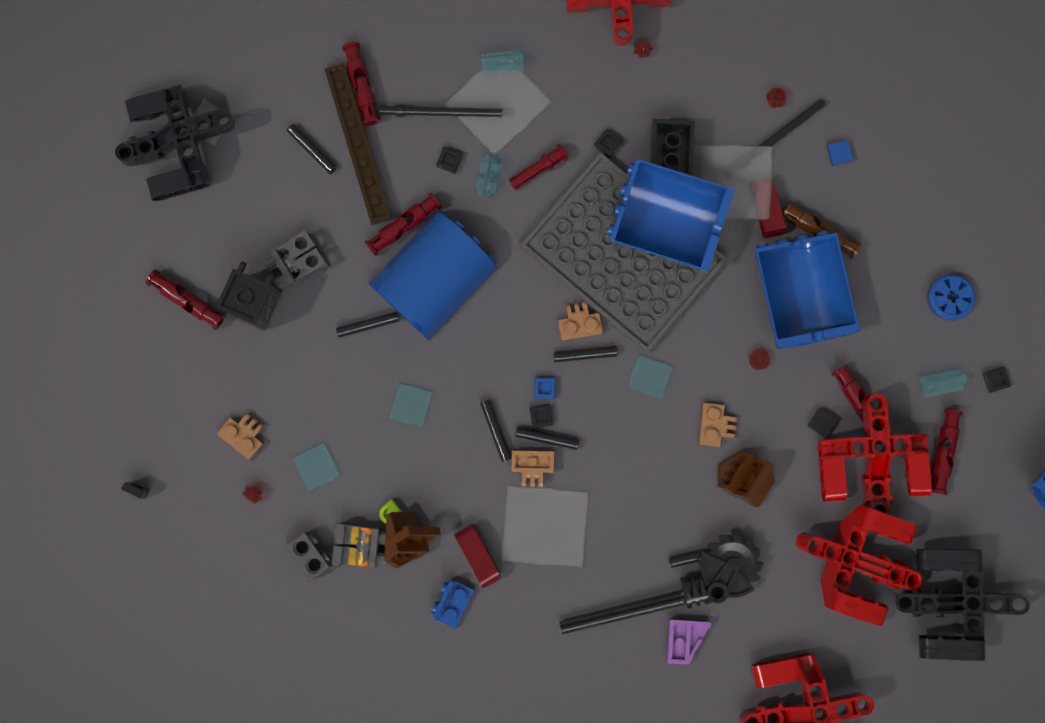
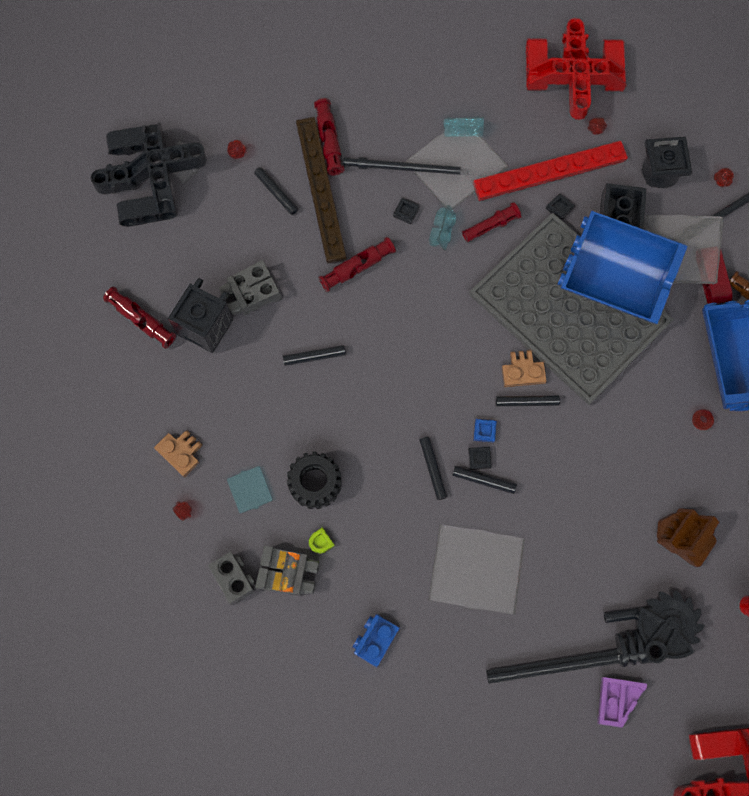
camera: 10 degrees right, 10 degrees down
(135, 490) = (65, 495): black tile -> none
(265, 106) = (236, 154): none -> clear red plate
(361, 450) = (314, 462): none -> black tyre
(406, 538) = (335, 567): reddish brown piece -> none
(410, 405) = (349, 436): clear light blue piece -> none
(434, 274) = (384, 312): blue cylinder -> none
(477, 556) = (406, 593): dark red beam -> none
(532, 465) = (468, 505): medium nougat hinge -> none
(596, 104) = (549, 170): none -> red plate
(649, 377) = (591, 428): clear light blue piece -> none
(714, 425) = (656, 481): medium nougat hinge -> none
(715, 87) = (666, 161): none -> black piece

